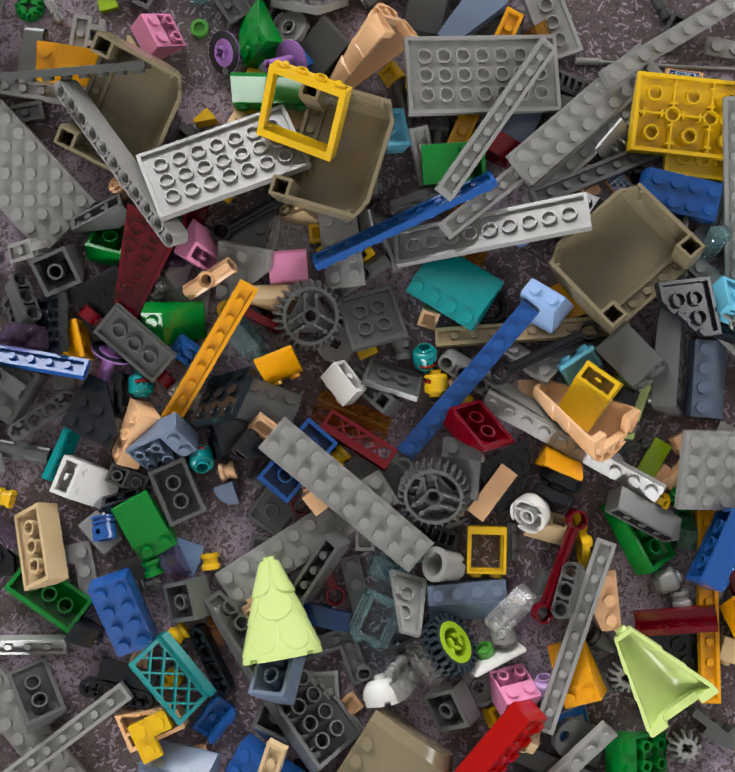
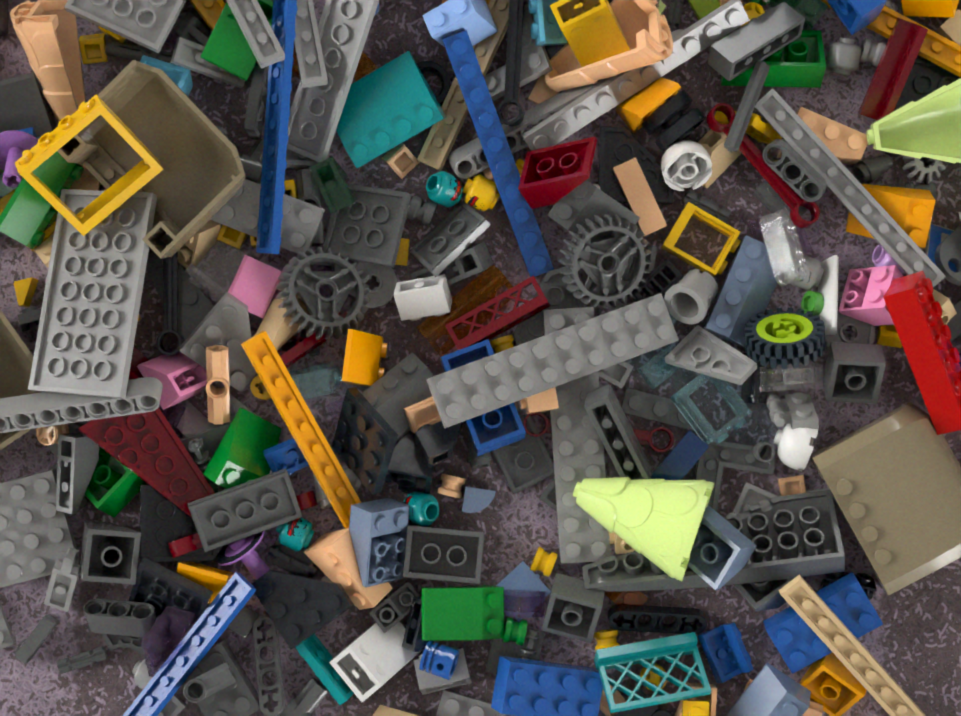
camera: 60 degrees left, 0 degrees up
(388, 278) = (332, 184): none -> clear green slope
(593, 533) = (746, 106): none -> dark grey axle

